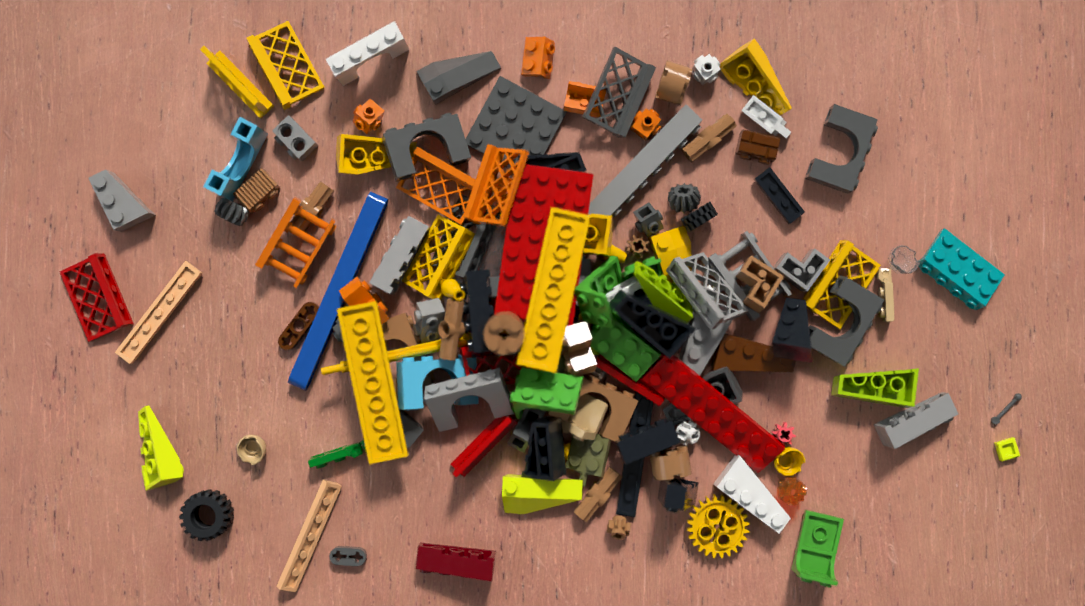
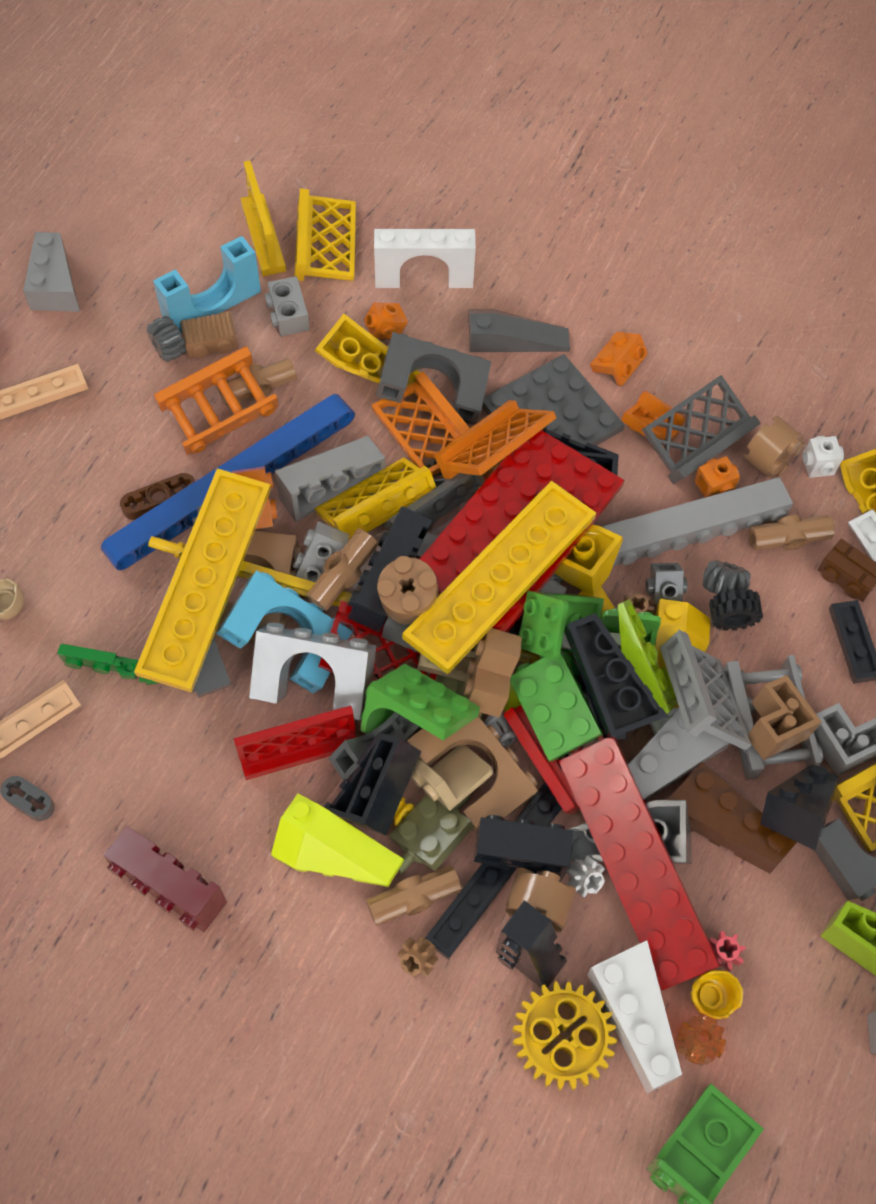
camera: 30 degrees right, 25 degrees down
(451, 289) = (368, 523): yellow cone -> none

